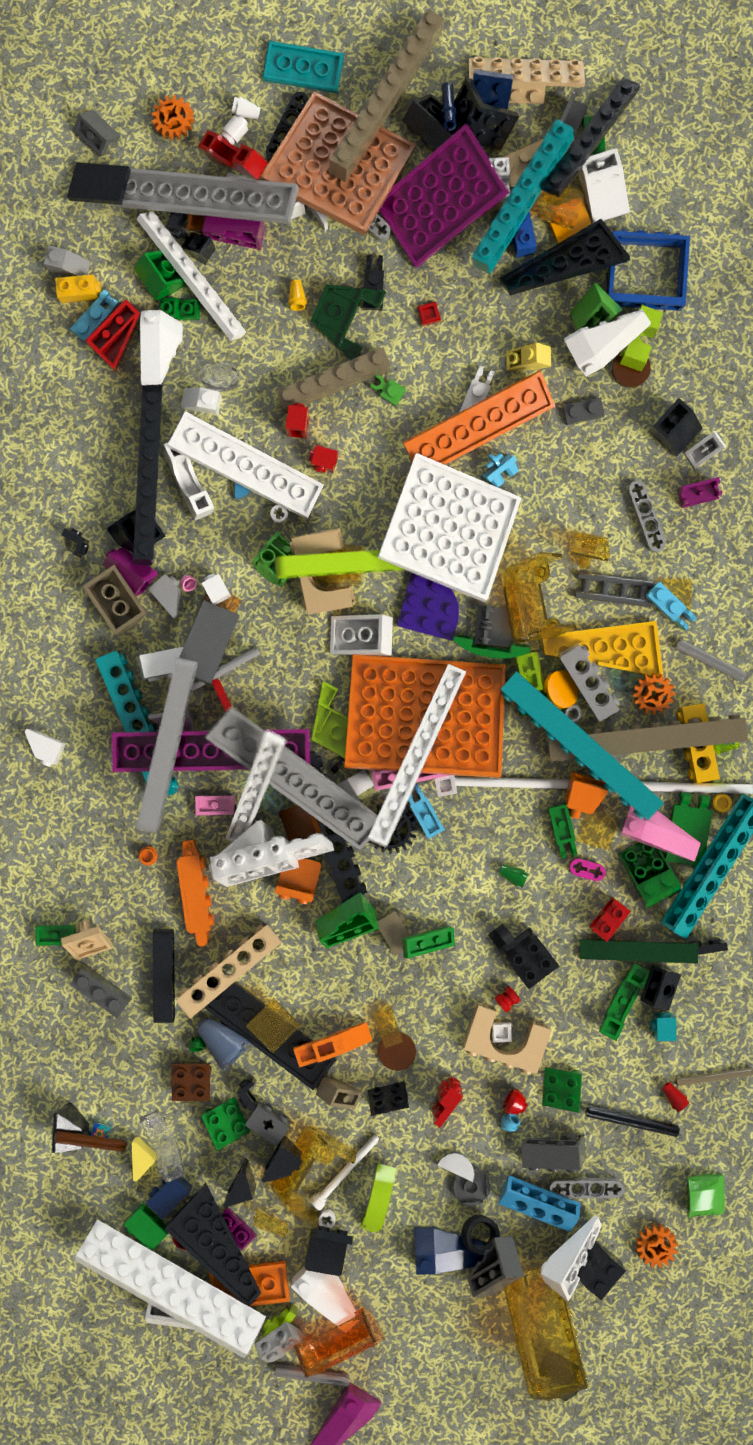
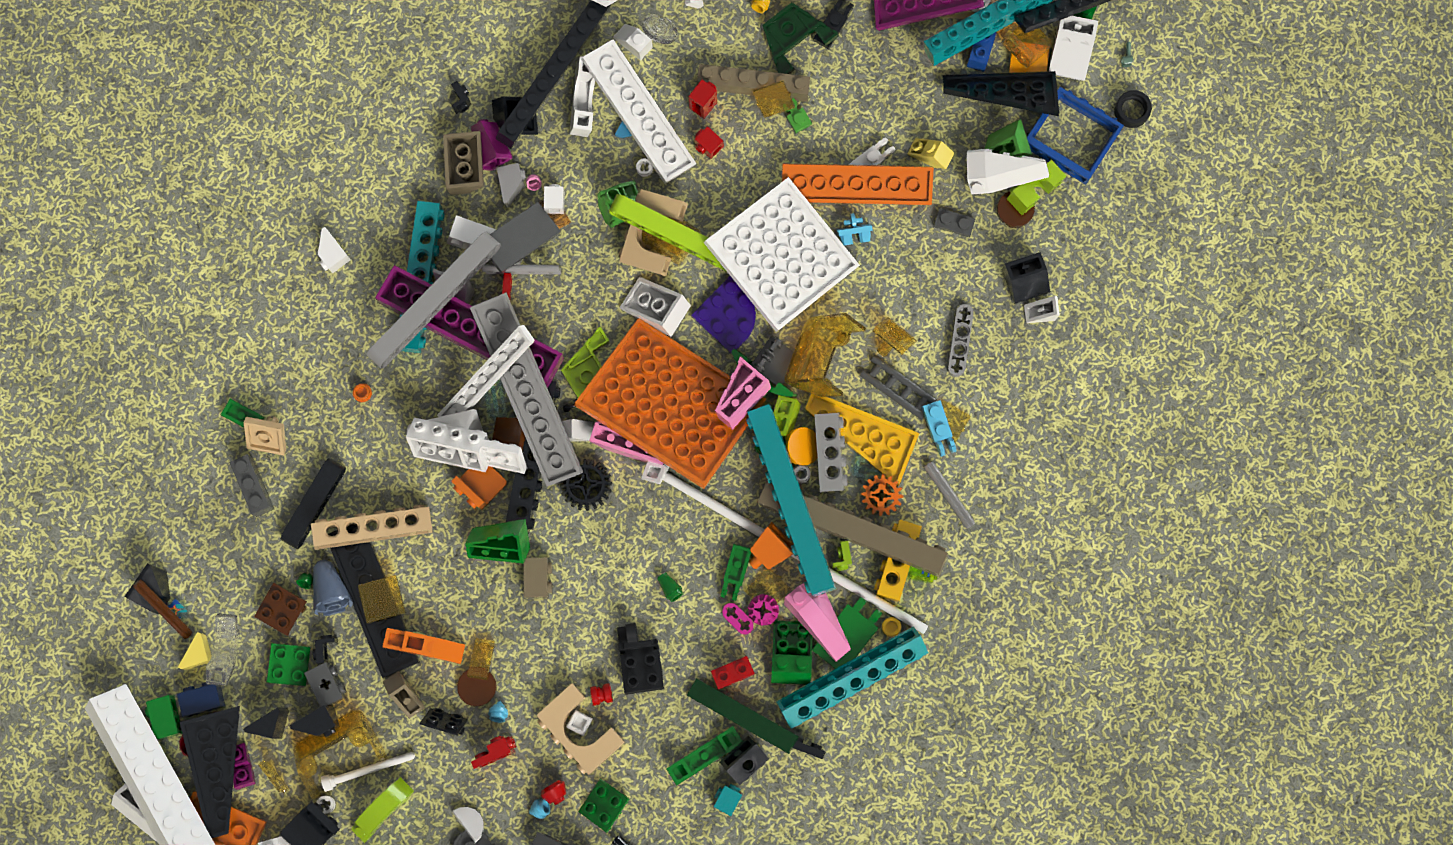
camera: 30 degrees right, 10 degrees down
(194, 892) = (383, 445): orange hinge -> none
(215, 805) = (444, 380): bright pink plate -> none
(361, 385) = (773, 99): none -> clear yellow piece
(416, 755) = (641, 427): white plate -> none
(425, 814) = (622, 489): medium azure hinge -> none
(428, 942) = (560, 601): green plate -> none
(428, 1062) = (498, 713): none -> medium azure plate
(429, 313) = (866, 72): red tile -> none
(486, 675) = (742, 393): none -> bright pink wedge
(596, 847) = (770, 604): none -> dark pink gear
(648, 762) = (844, 553): none -> lime bracket
(658, 169) = (1126, 61): none -> sand green hand
(697, 204) = (1140, 97): none -> black tyre
(699, 492) = (1018, 344): magenta hinge -> none

